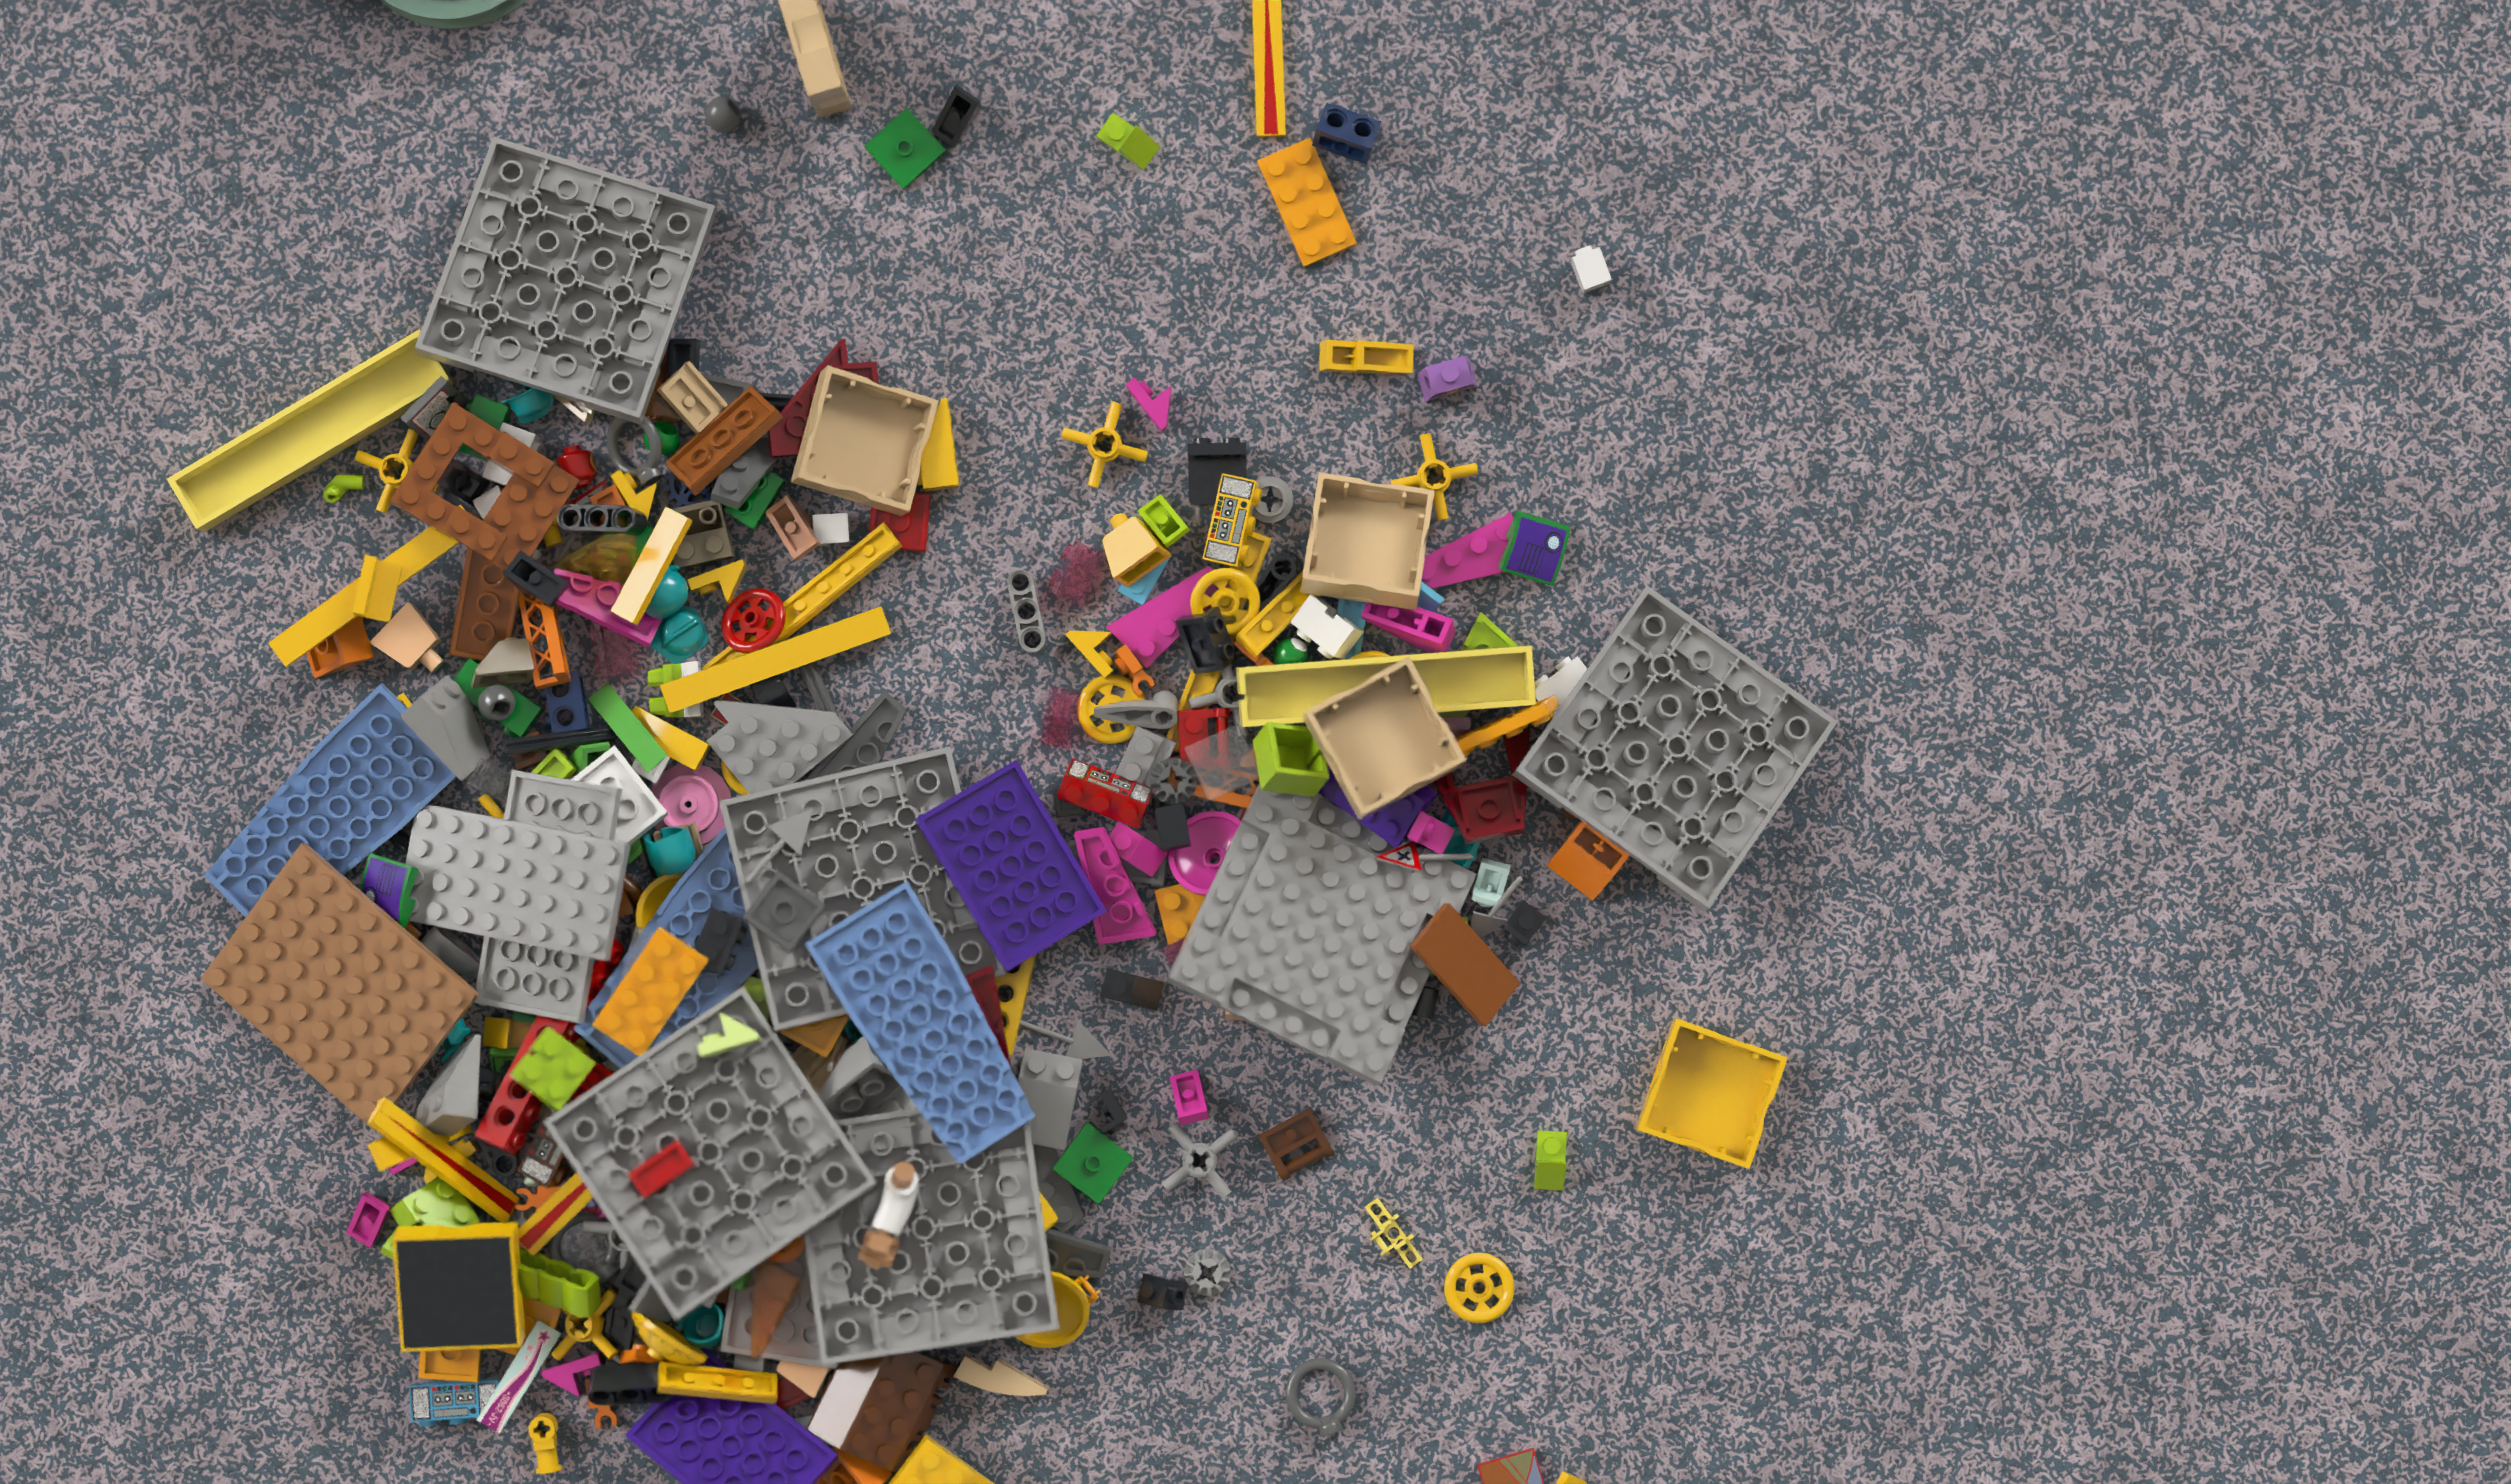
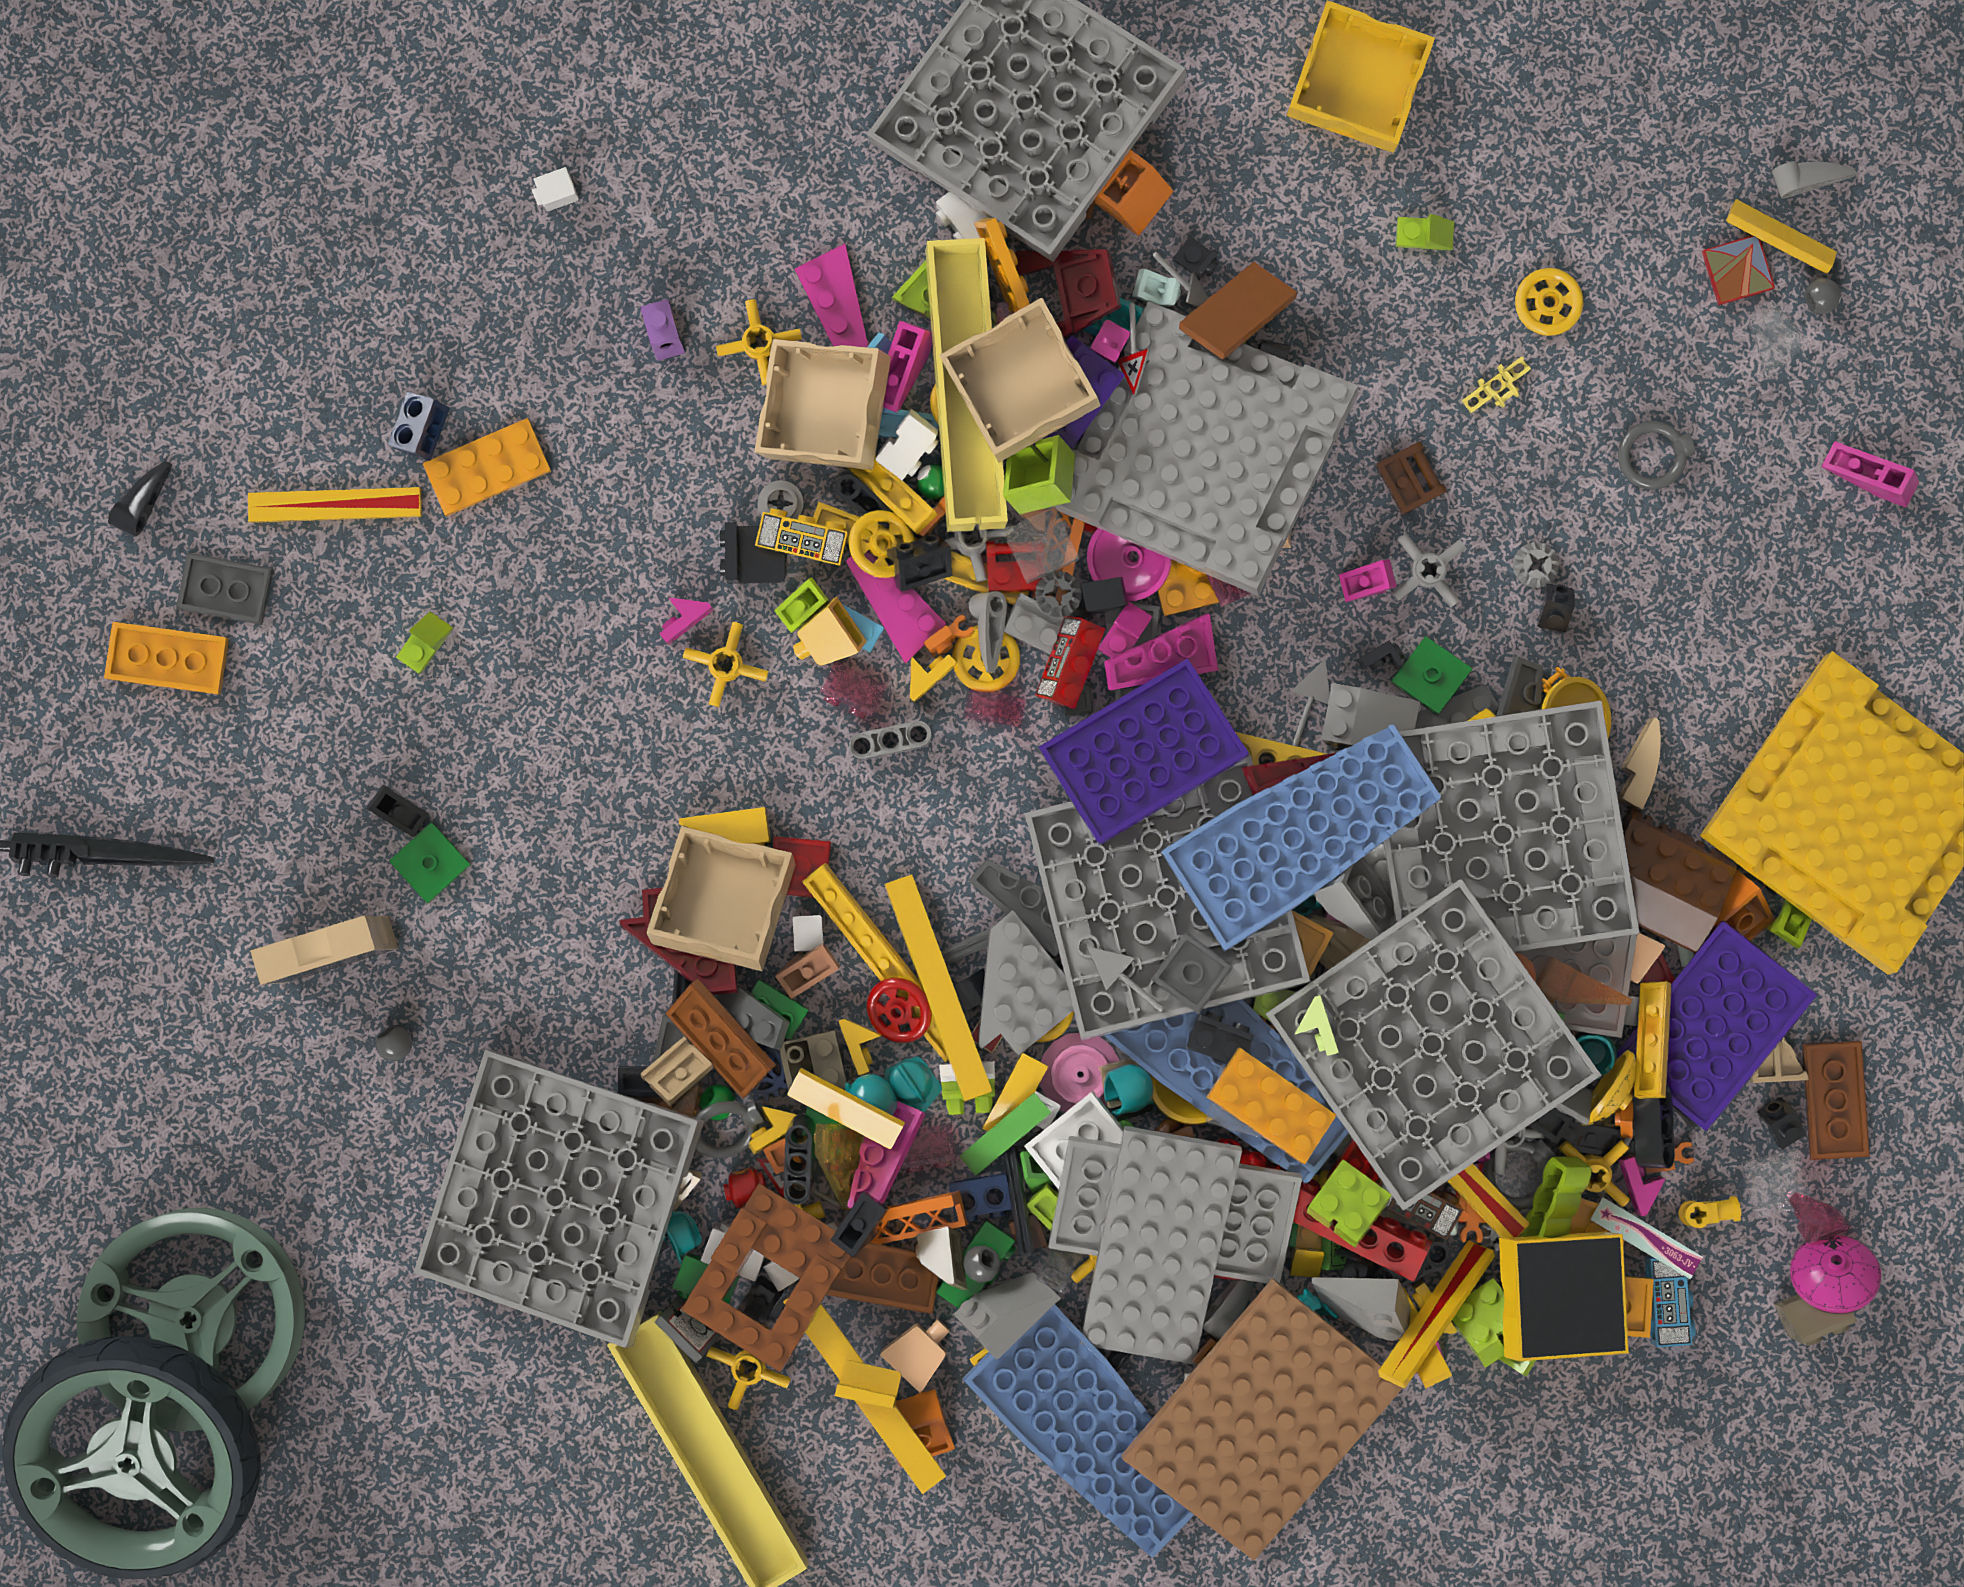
camera: 90 degrees left, 0 degrees up
(340, 485) = (762, 1424): lime arm -> none
(369, 1219) = (1491, 1388): dark pink slope -> none
(389, 886) = (1164, 1369): slope -> none
(661, 1169) = (1451, 1091): red tile -> none
(894, 1210) = (1484, 861): piece -> none
(1132, 989) = (1261, 638): black slope -> none
(1366, 357) = (640, 409): yellow slope -> none
(1534, 548) = (829, 244): slope -> none

